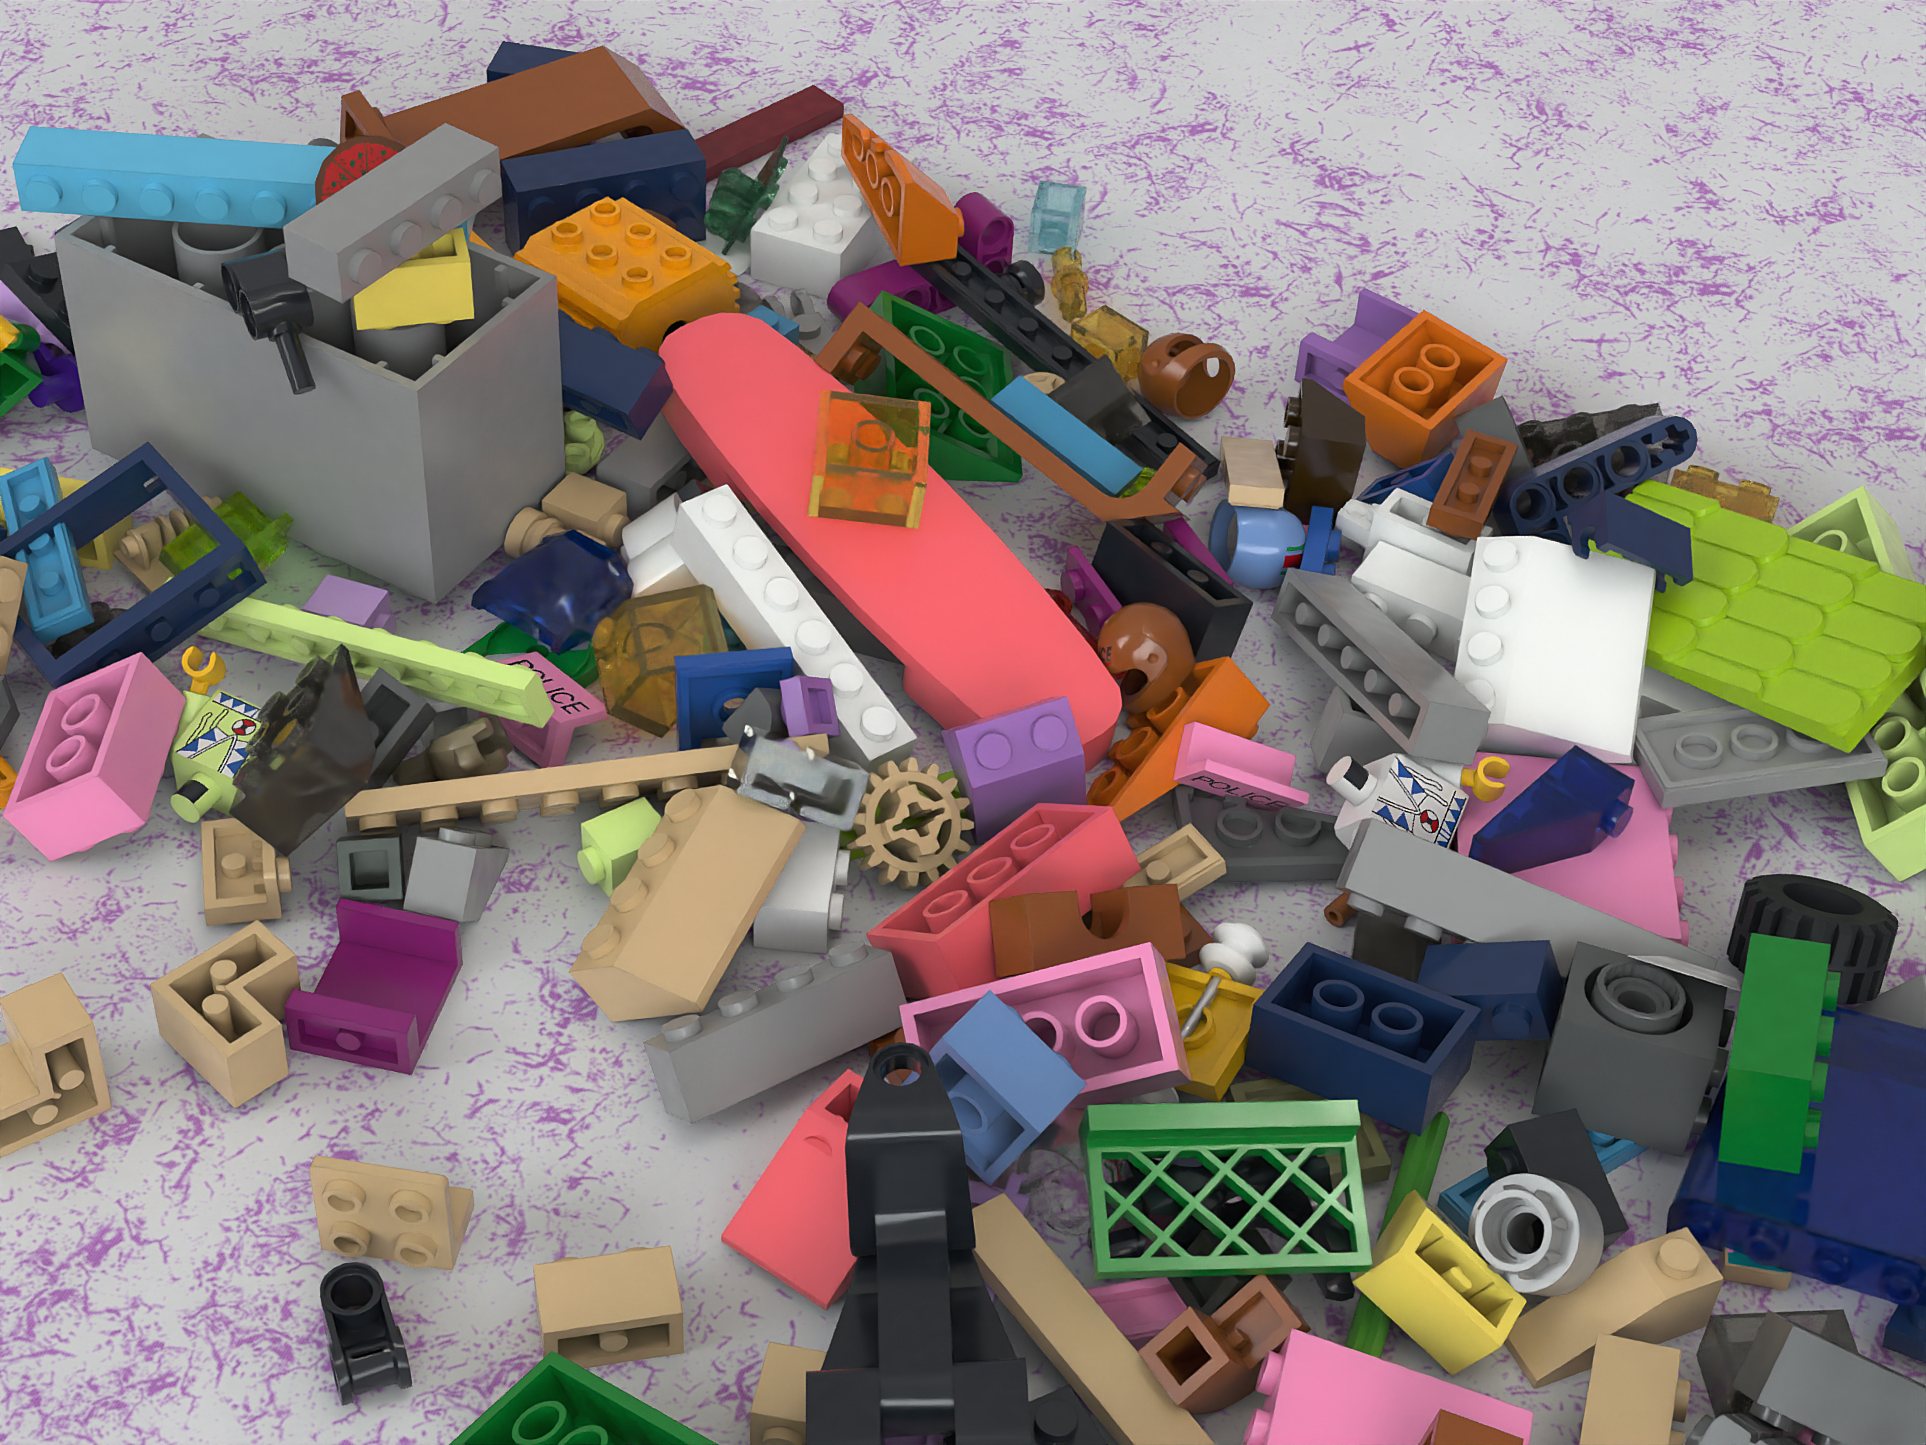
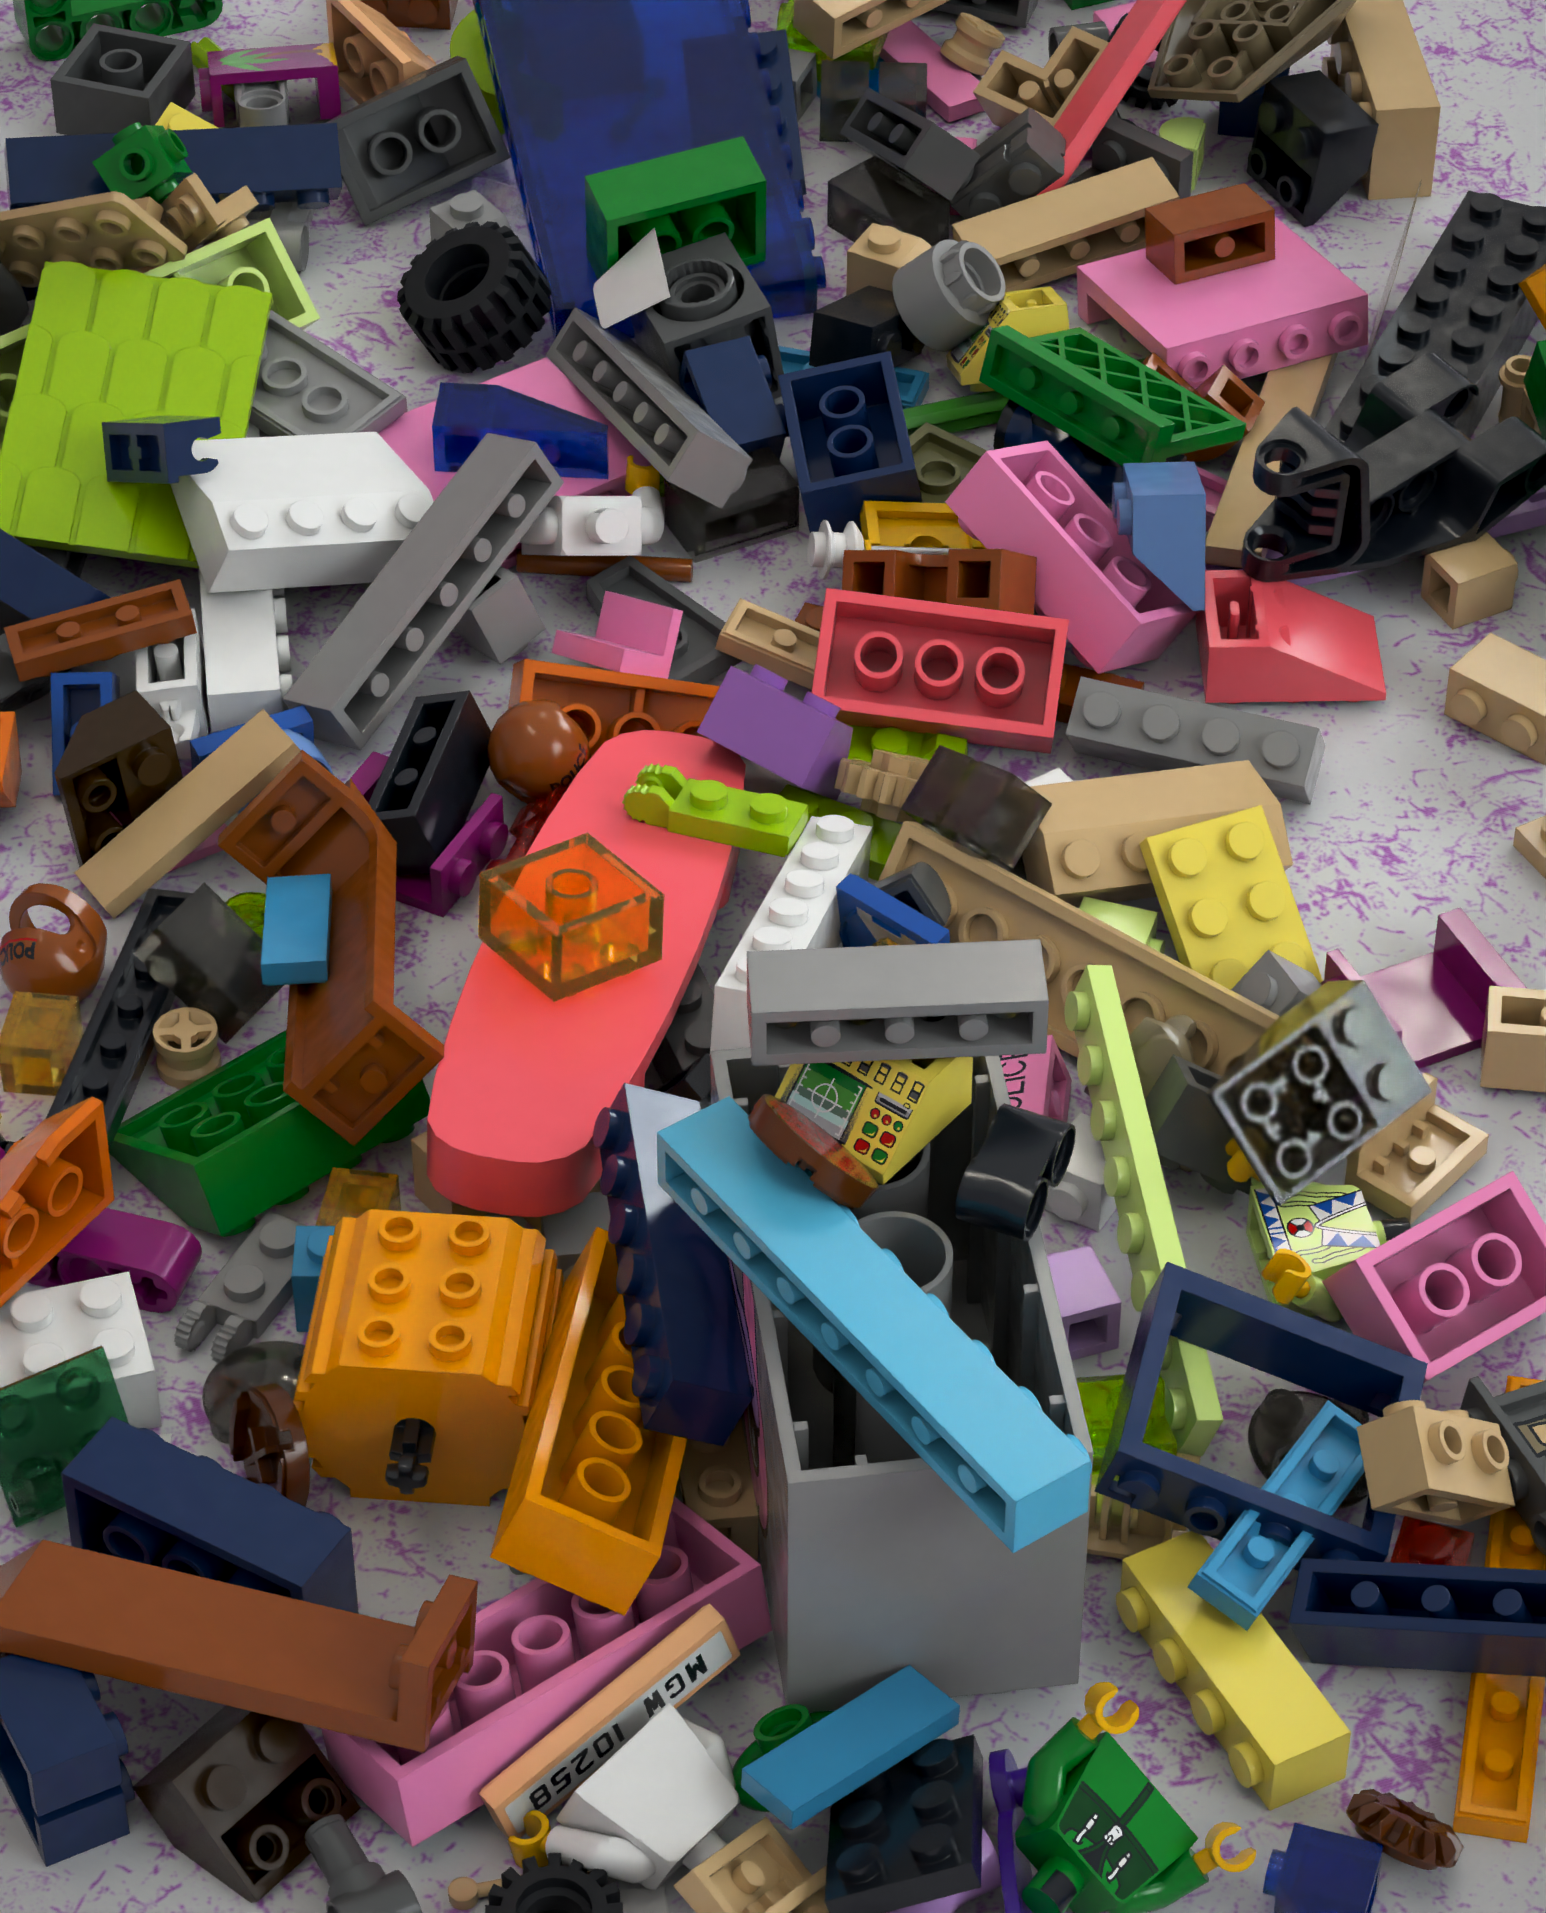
camera: 125 degrees left, 0 degrees up
(559, 896) = (1226, 896): none -> light yellow plate
(809, 706) = (884, 852): medium lavender plate -> none
(954, 665) = (715, 811): none -> lime hinge

